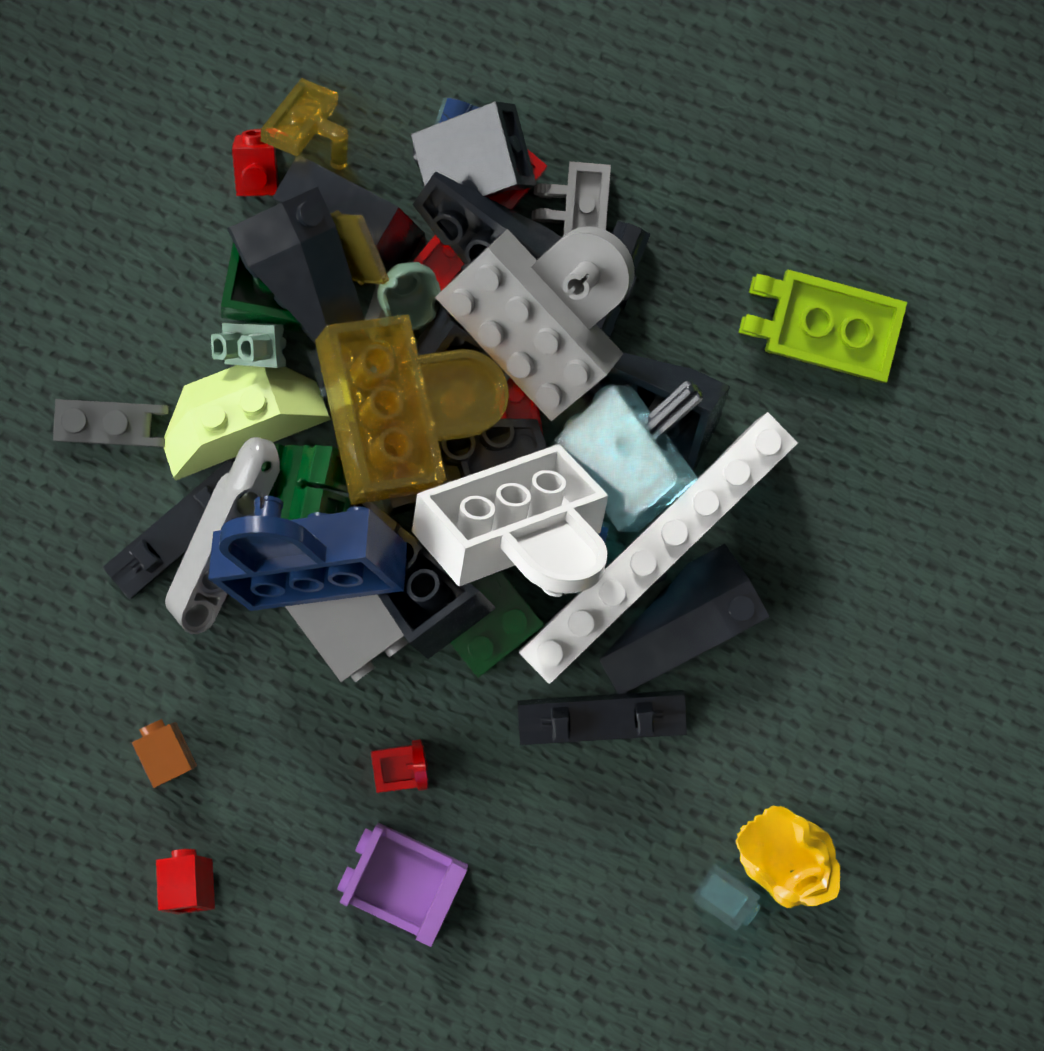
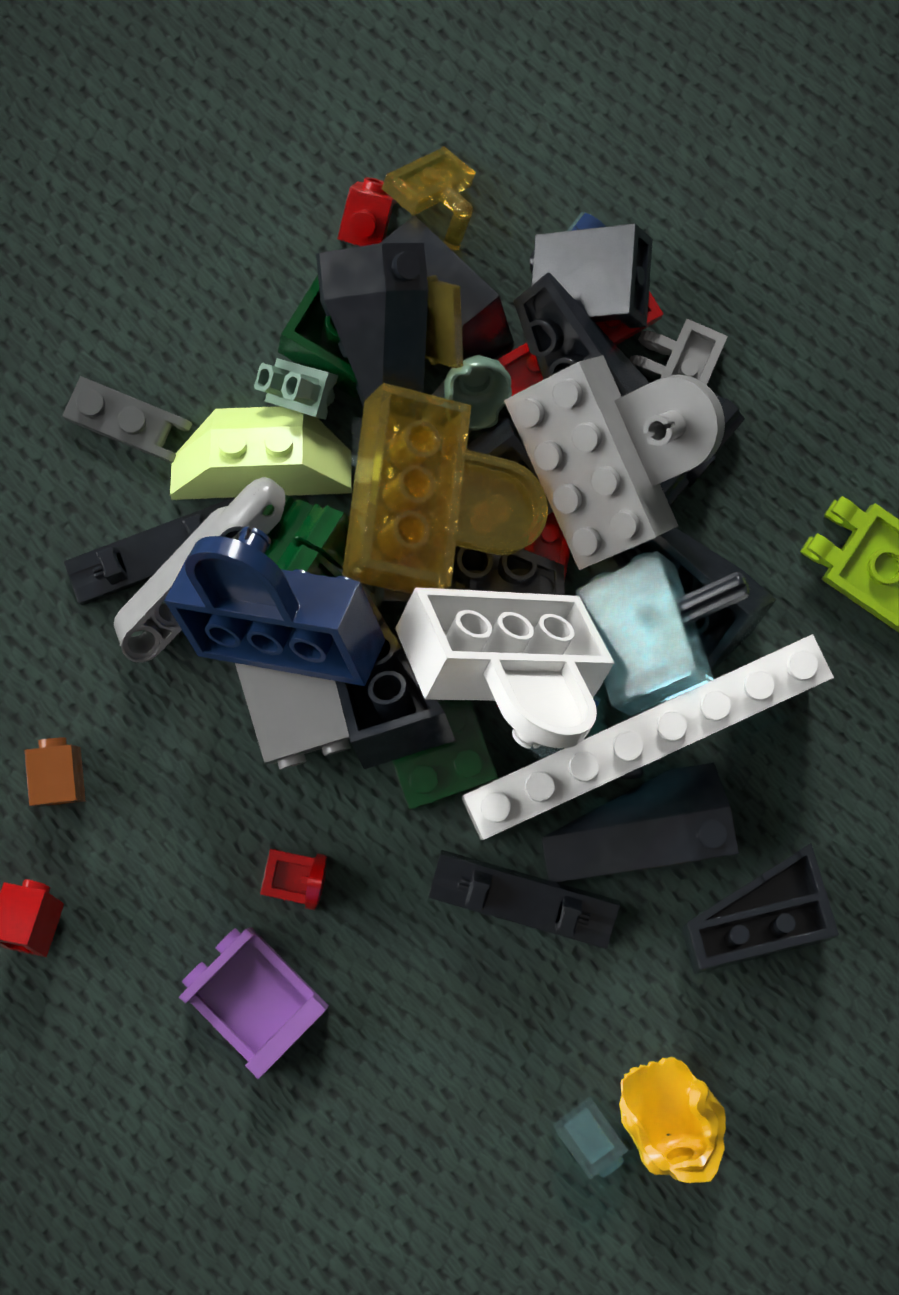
camera: 20 degrees right, 5 degrees down
(810, 662) = (765, 917): none -> black wedge

